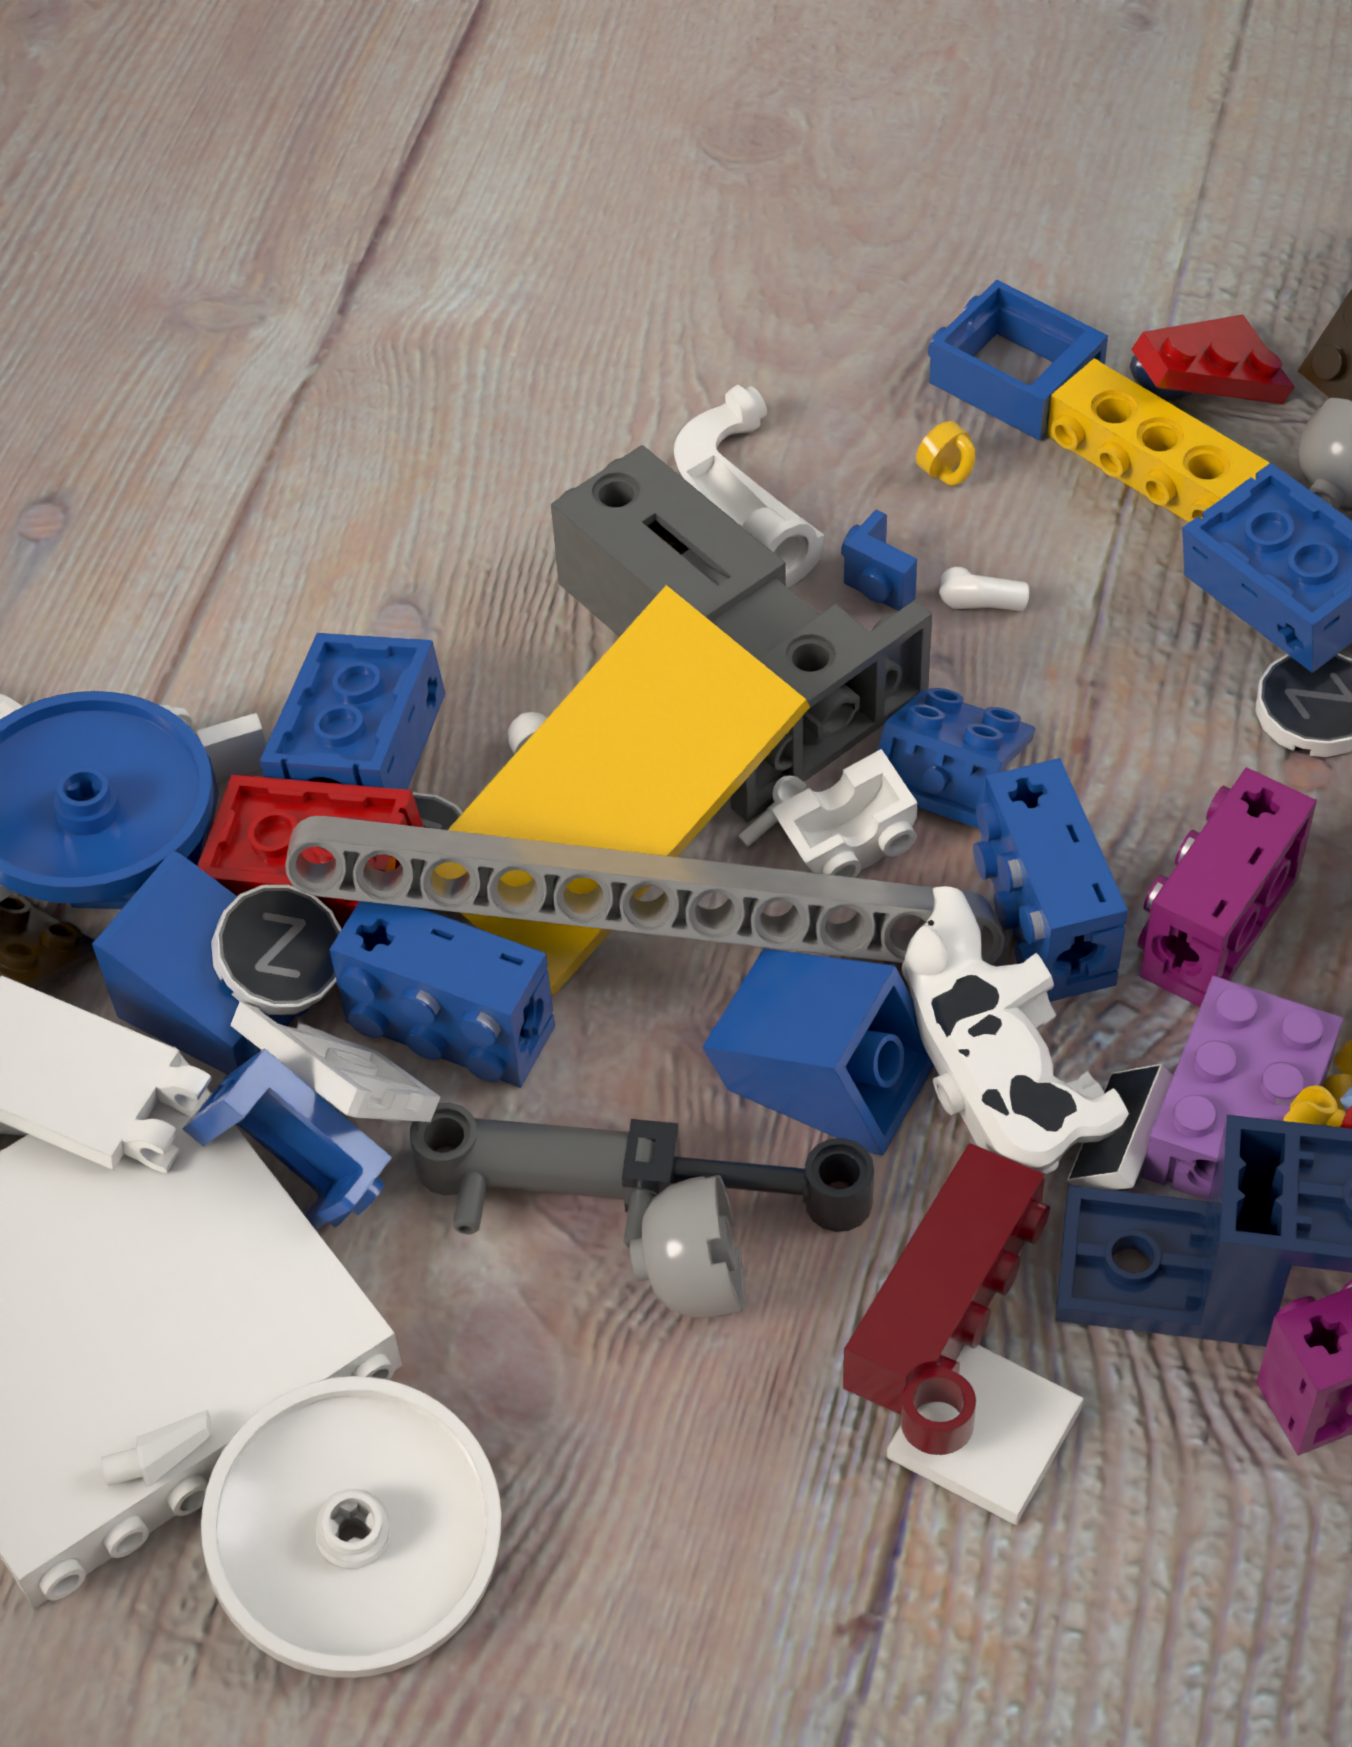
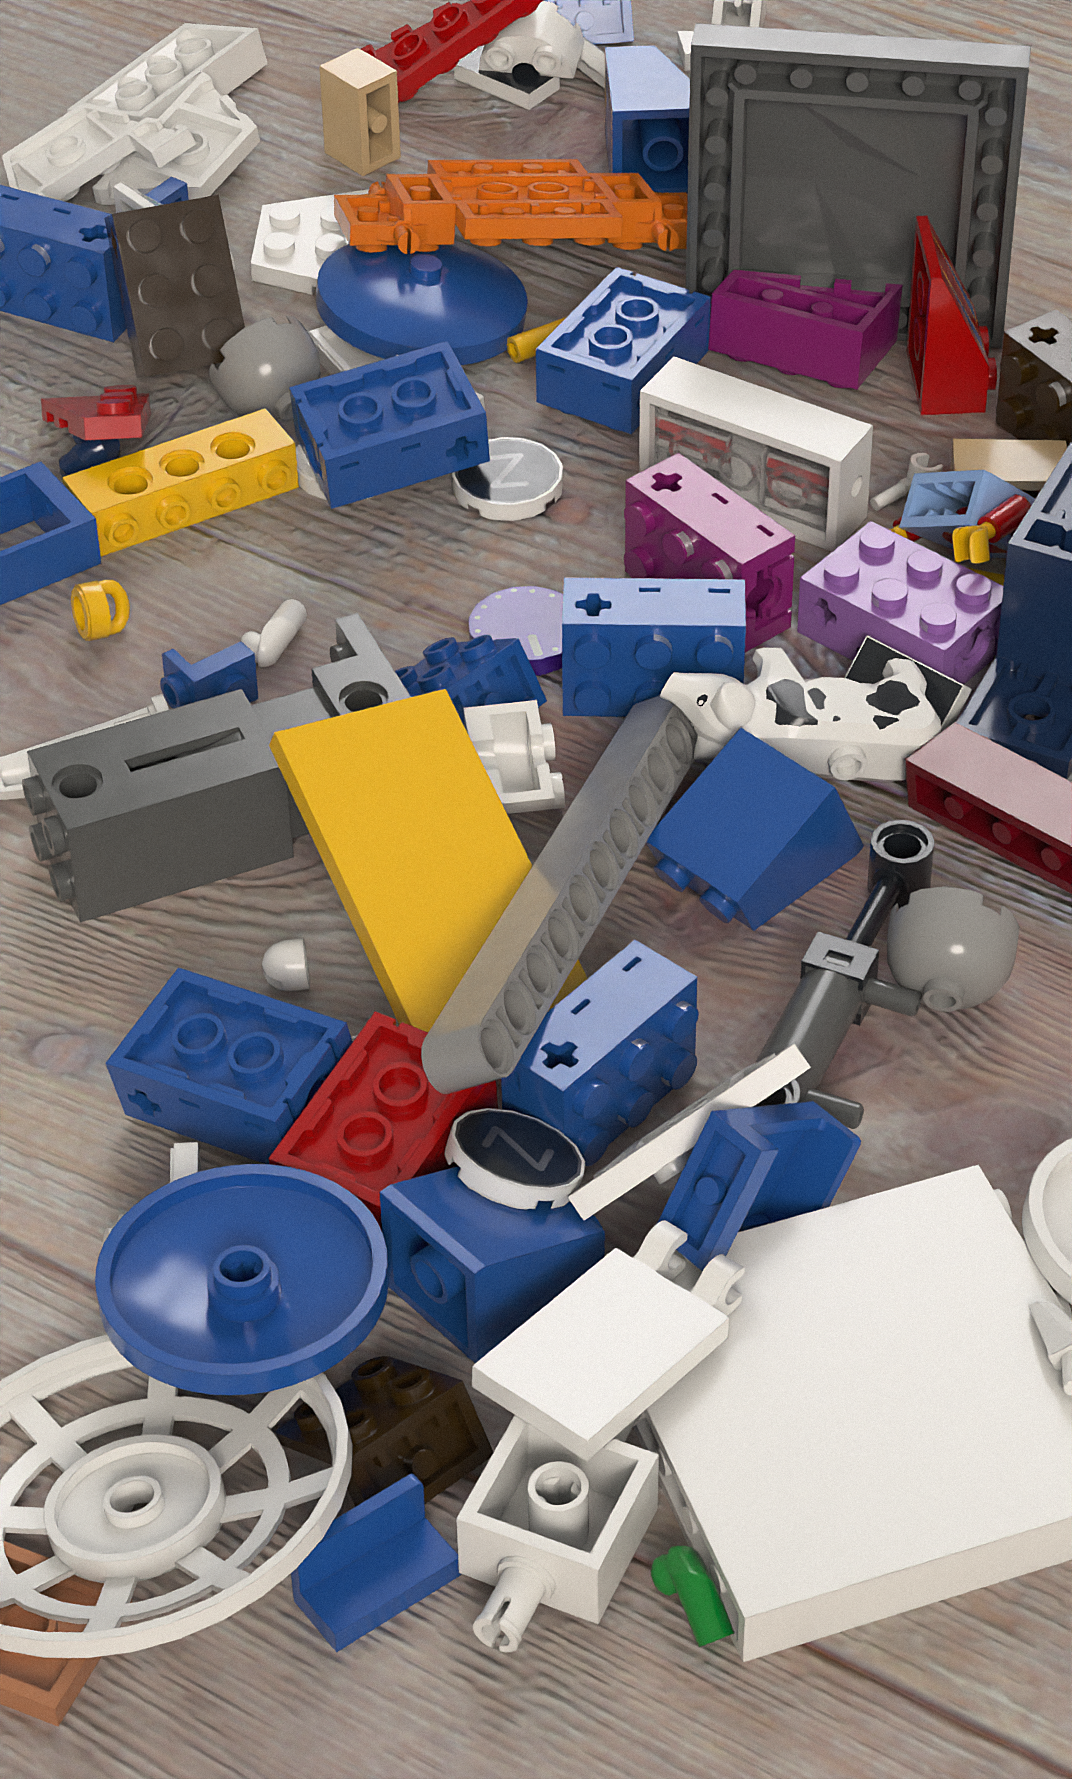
camera: 75 degrees left, 10 degrees down
(1102, 772) = (525, 614): none -> tile

